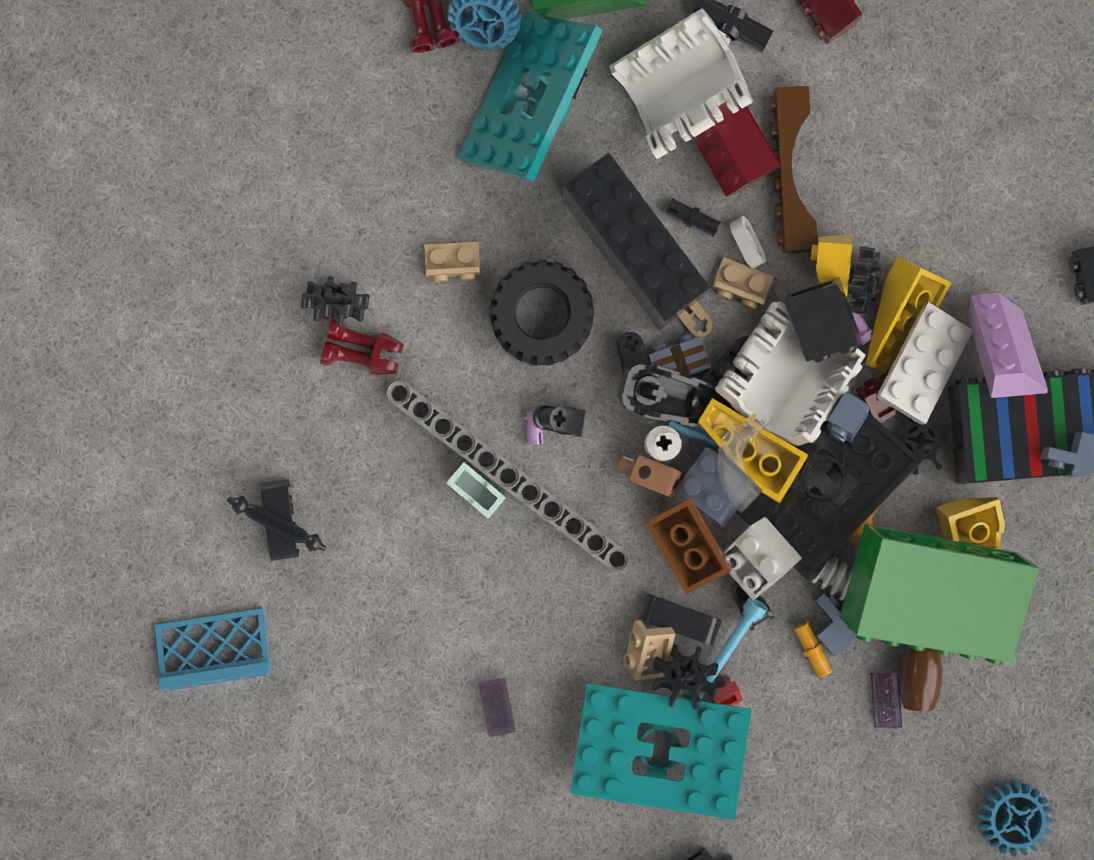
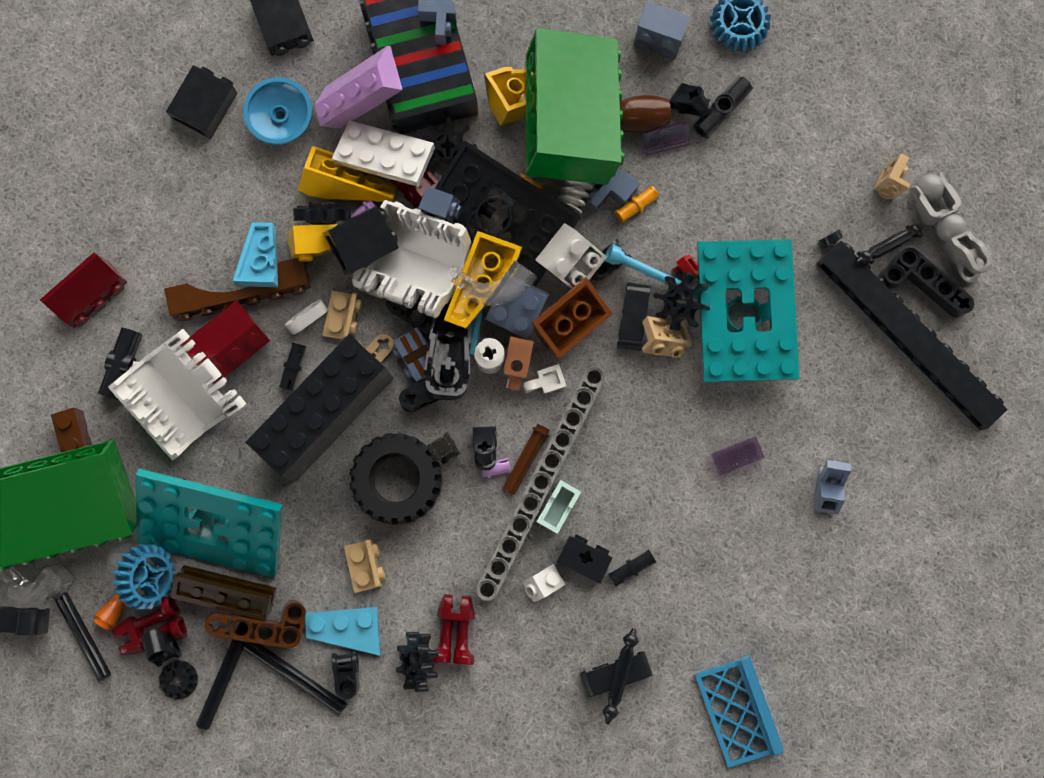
camera: 100 degrees left, 5 degrees down
(337, 220) = (345, 672): none -> black piece
(345, 164) = (295, 677): none -> black axle
(364, 88) = (222, 680): none -> black axle
(376, 41) = (182, 669): none -> black gear
(387, 229) = (346, 628): none -> medium azure wing
(393, 561) = (632, 568): none -> black pin
(394, 458) = (543, 583): none -> white bracket
(398, 516) = (570, 558): none -> black brick
(404, 21) = (159, 647): none -> black piece
(409, 129) = (251, 635): none -> reddish brown beam
(441, 806) = (830, 486): none -> sand blue brick
(451, 100) = (223, 592): none -> dark brown brick
(538, 464) = (526, 459): none -> reddish brown axle
(566, 372) = (443, 449): none -> clear smoke piece
(623, 507) = (548, 379): none -> white plate
(826, 199) = (258, 258): none -> medium azure wing
(923, 787) = (731, 98): none -> black piece
(925, 738) = (691, 100): none -> black piece
(1012, 237) = (269, 100): none -> dark azure dish
(1017, 719) = (661, 30): none -> sand blue brick
(1027, 163) = (202, 101): none -> black brick

